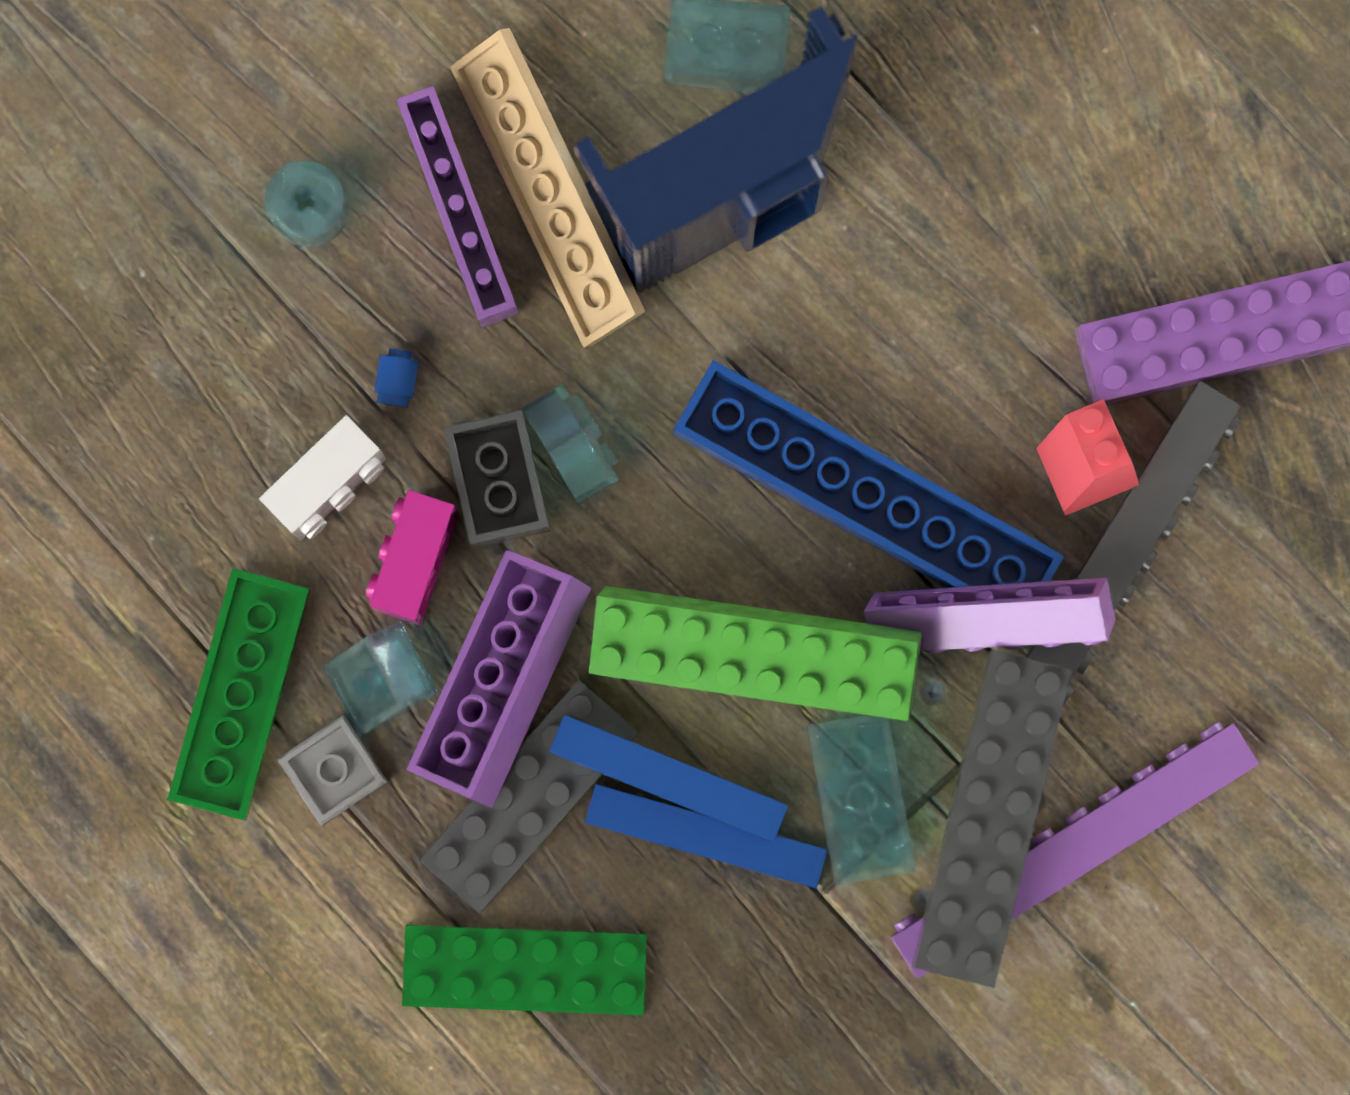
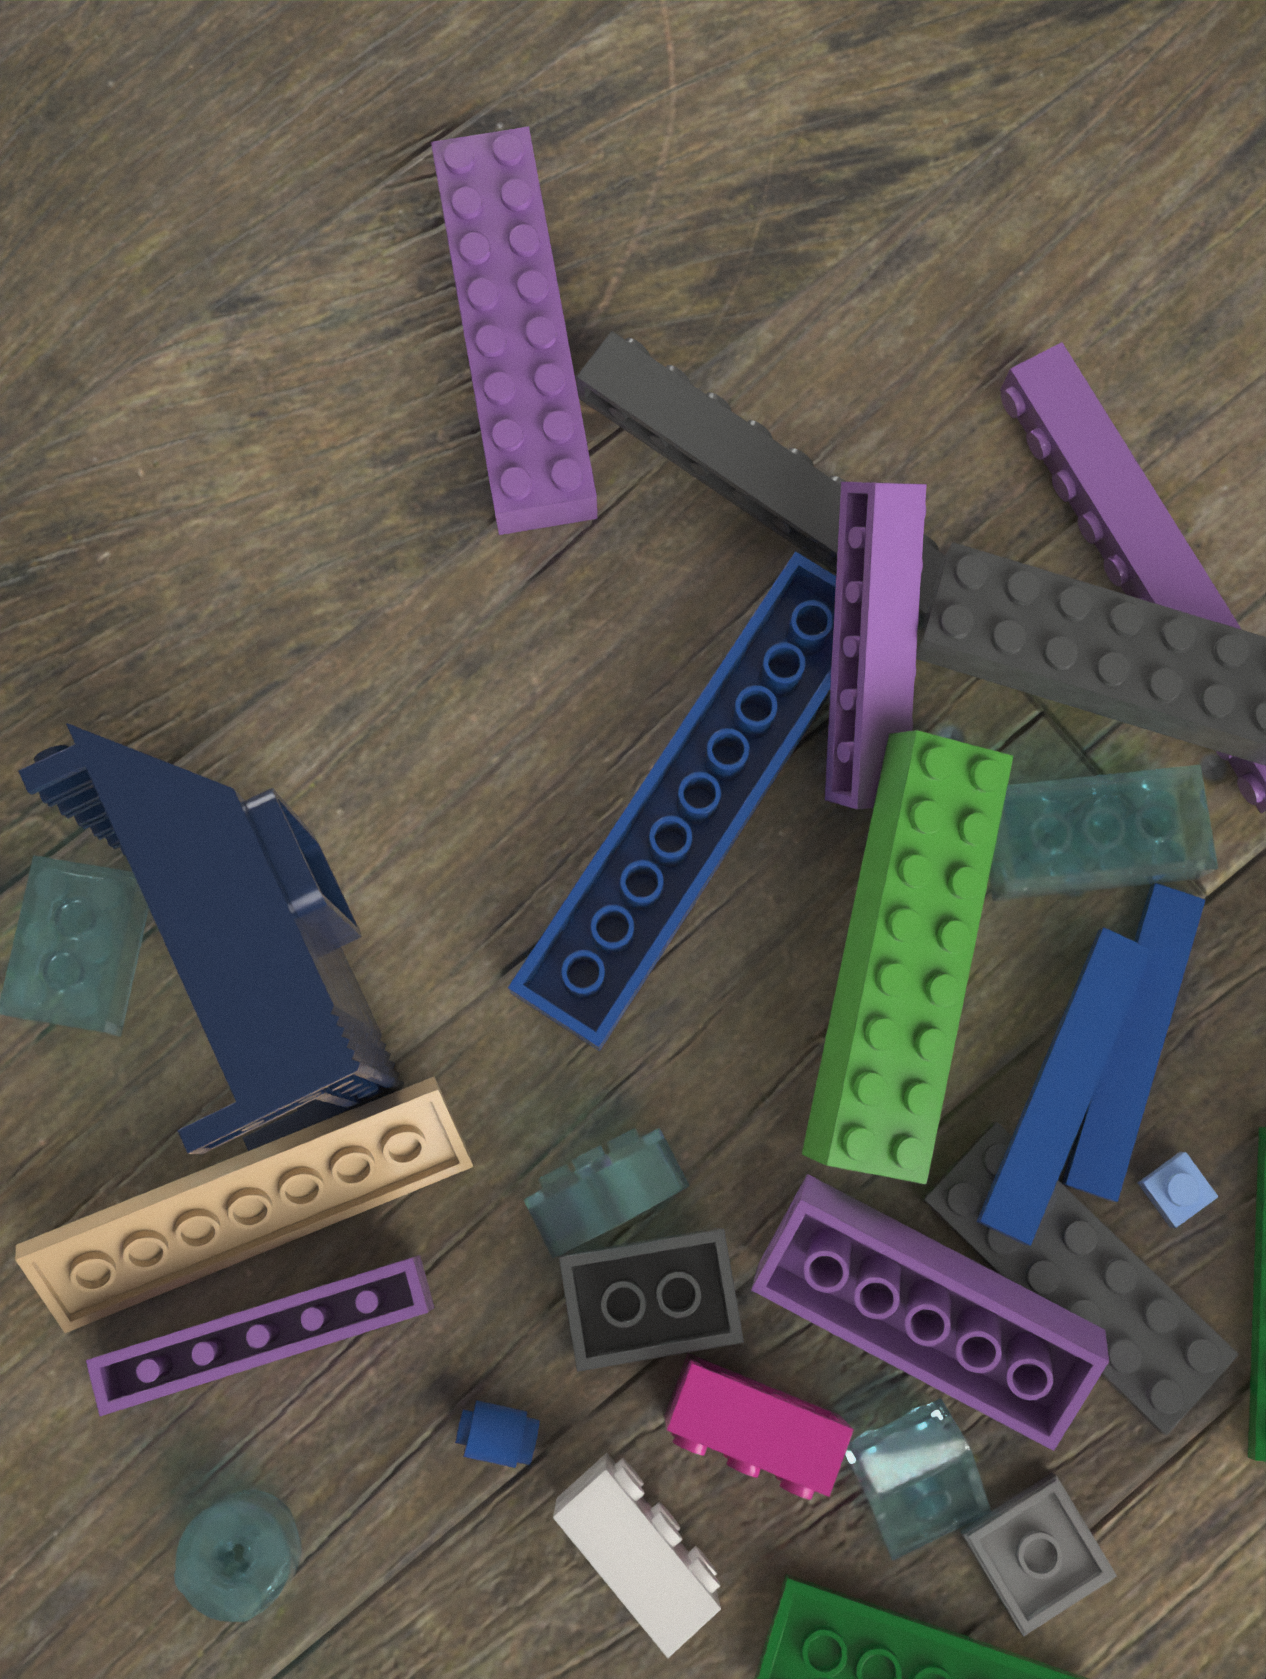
camera: 90 degrees left, 5 degrees down
(596, 870) = (1177, 1189): none -> light blue plate
(1086, 458) = (667, 519): coral slope -> none

